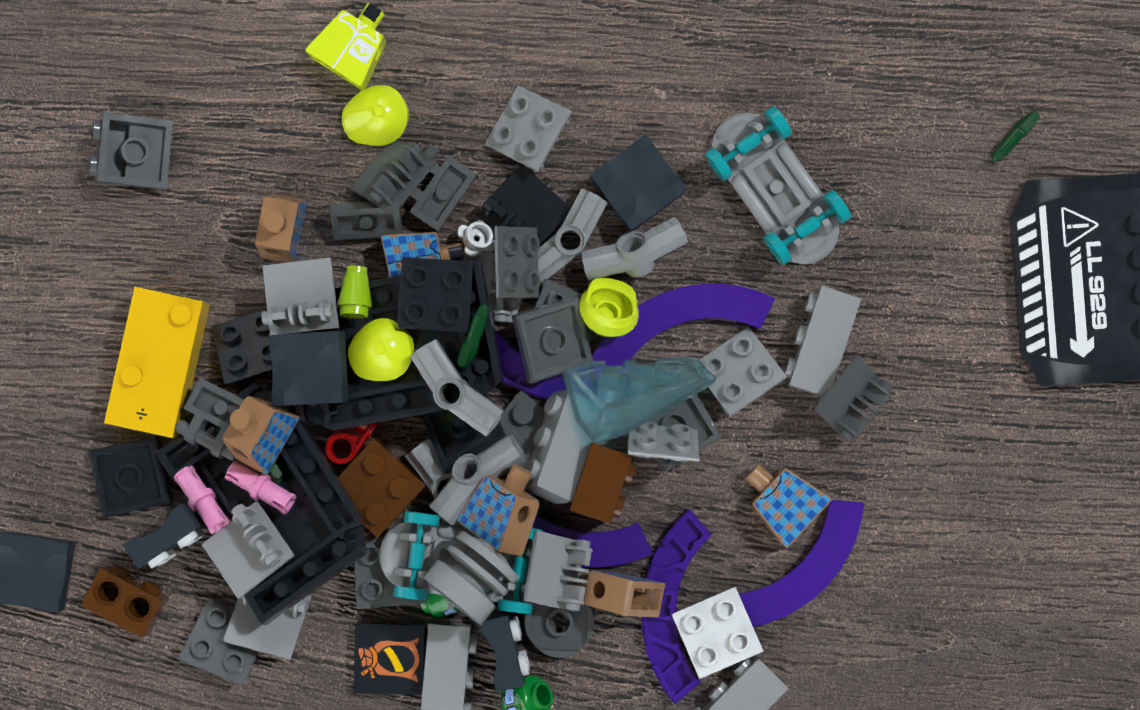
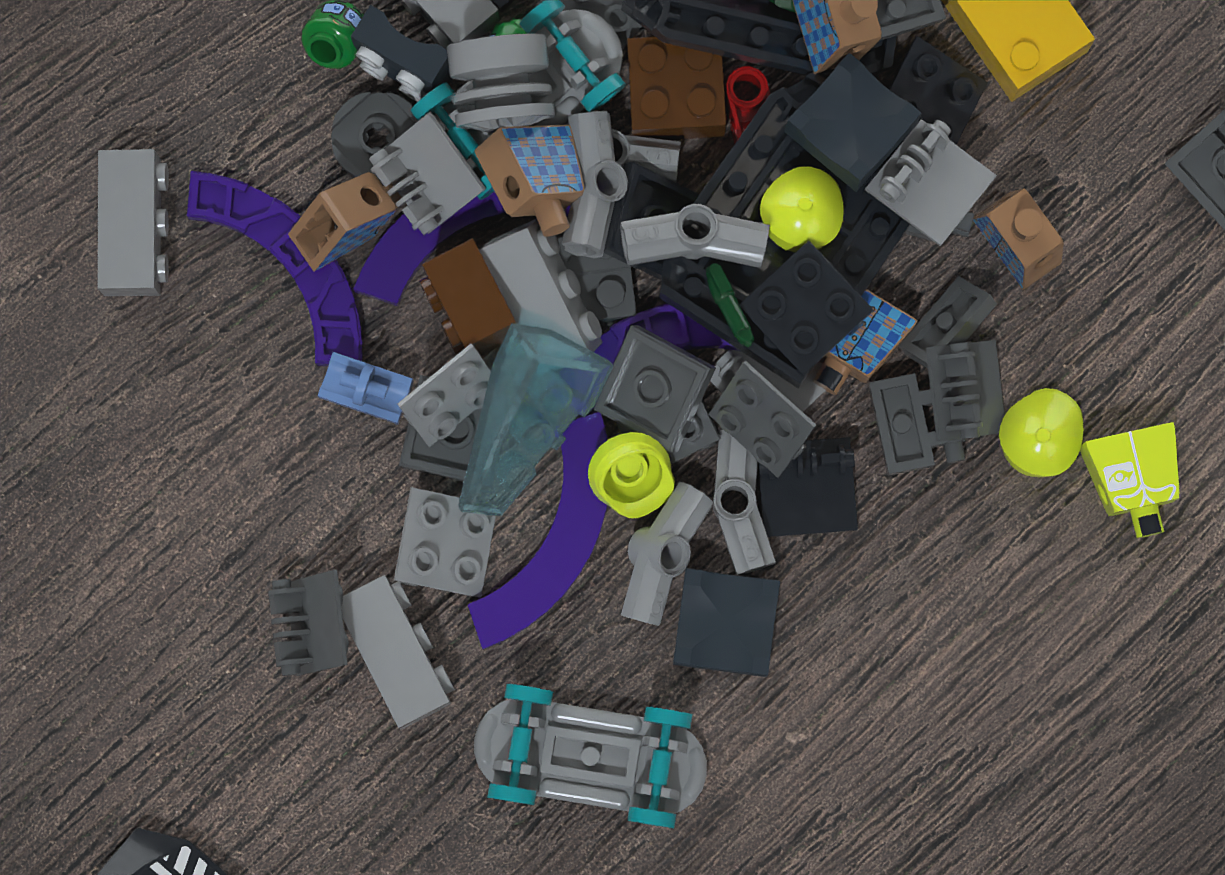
camera: 135 degrees right, 5 degrees down
(355, 293) = (883, 237): lime cone -> none
(484, 234) = (839, 409): white plate -> none
(528, 128) = (885, 569): light grey hinge -> none
(700, 493) = (365, 387): none -> medium blue hips
(717, 633) = (217, 275): white hinge -> none
(785, 502) = (275, 462): torso -> none
(812, 572) = (183, 408): dark purple tile -> none

